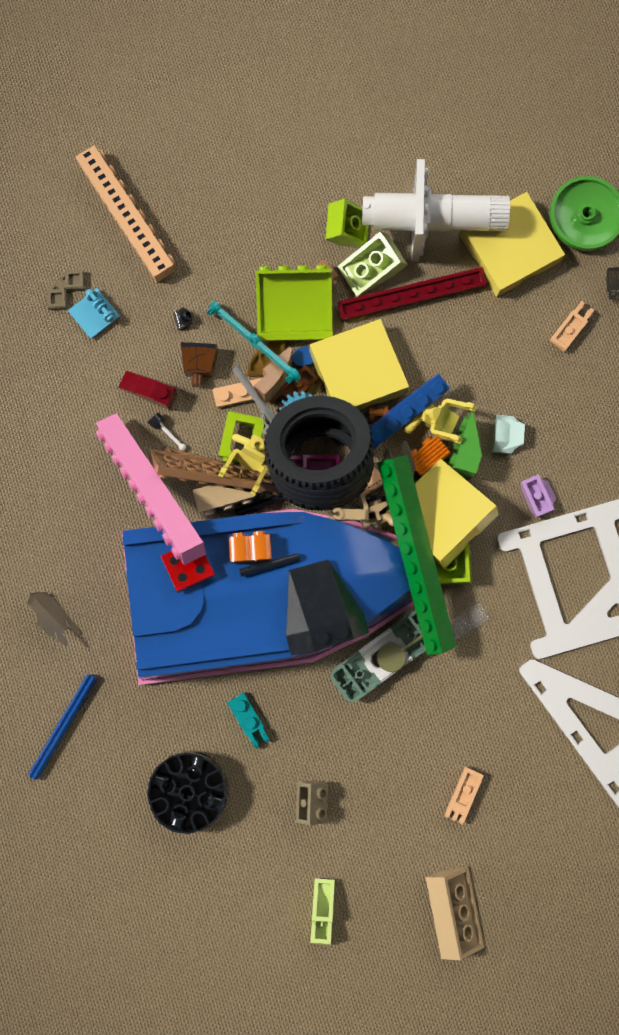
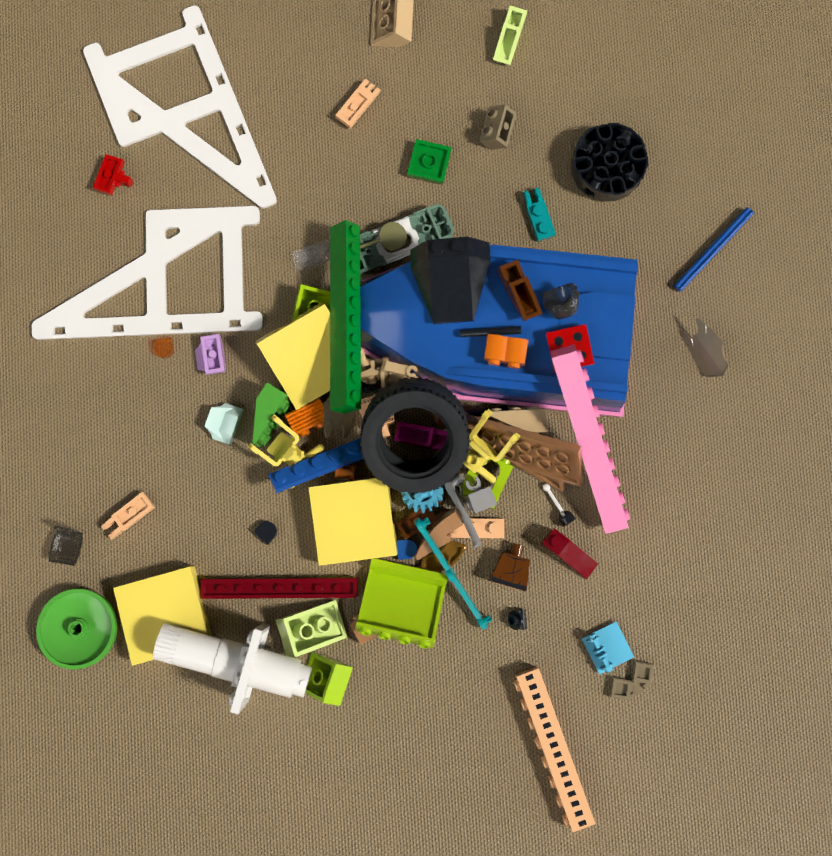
camera: 170 degrees left, 0 degrees up
(205, 609) = (562, 301): none -> clear smoke hair
(242, 414) = (480, 499): none -> light grey brick
(249, 611) = (519, 290): none -> reddish brown slope
(374, 749) = (429, 161): none -> green plate
(438, 342) = (266, 532): none -> black tile
(587, 493) = (163, 347): none -> clear orange tile

